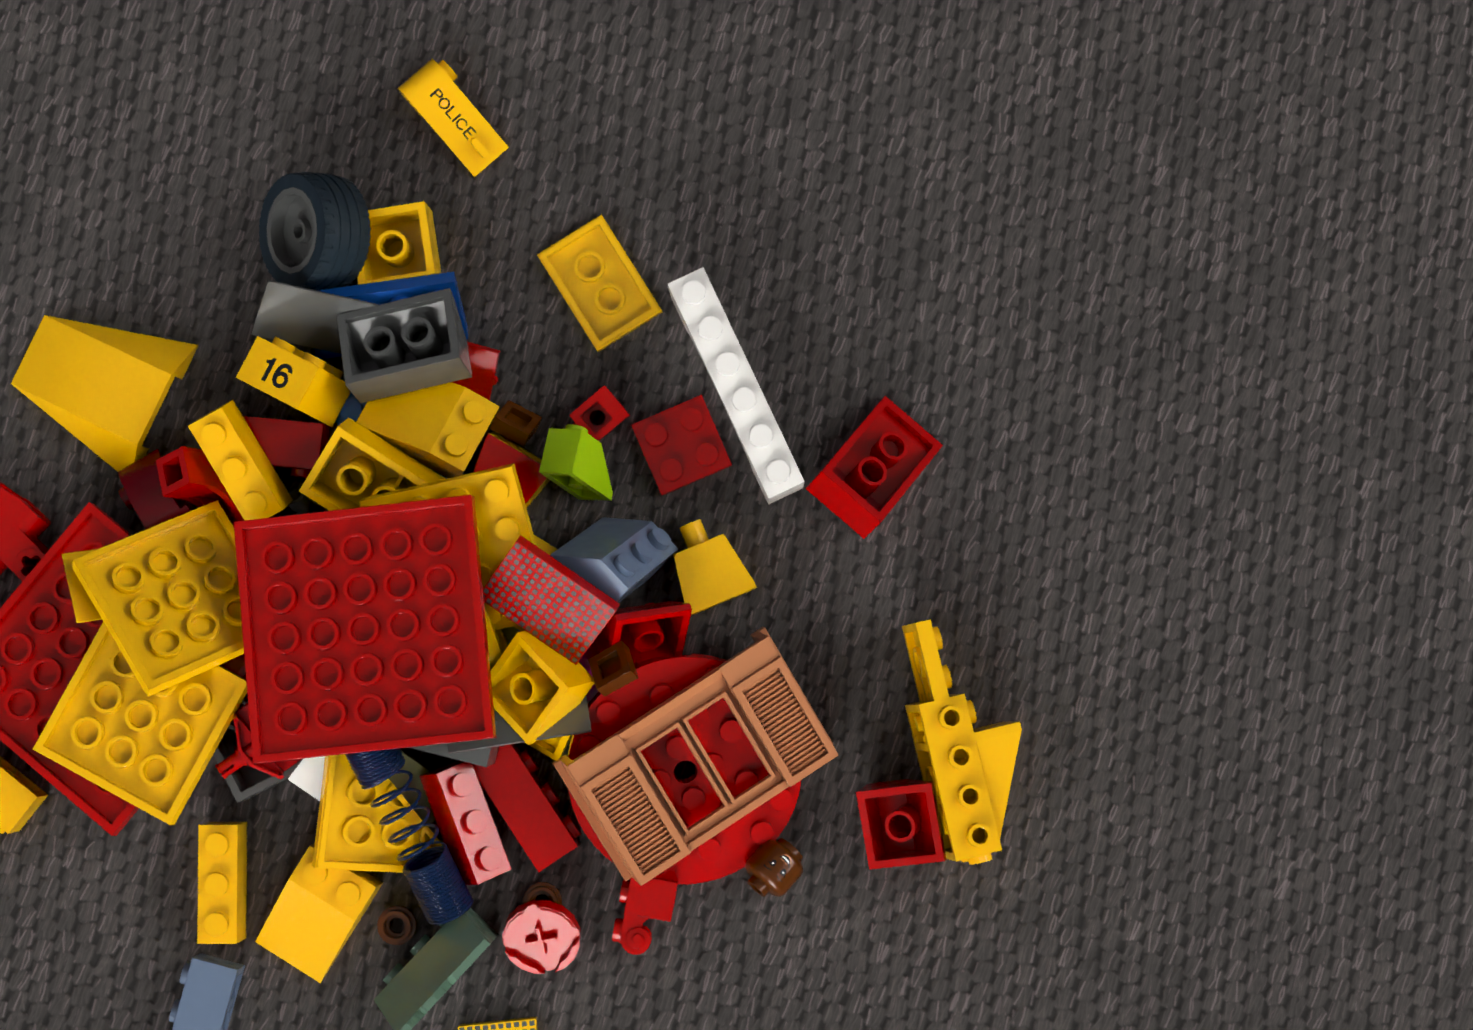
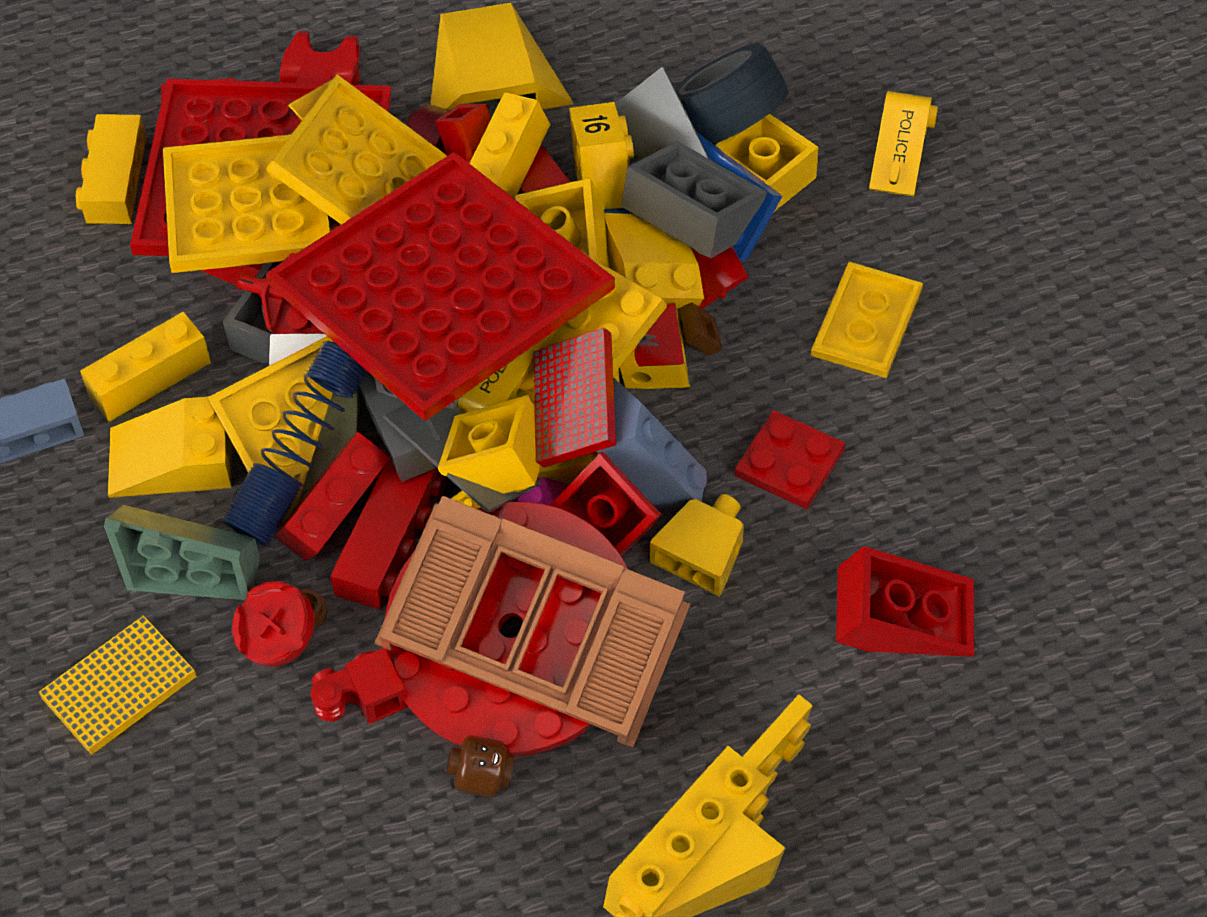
camera: 45 degrees right, 30 degrees down
(384, 925) = (202, 505): reddish brown plate -> none
(576, 463) = (705, 380): lime slope -> none
(609, 405) = (759, 379): red brick -> none
(613, 668) = (555, 491): reddish brown plate -> none
(736, 385) = (840, 496): white arch -> none
(900, 823) = (601, 828): red slope -> none

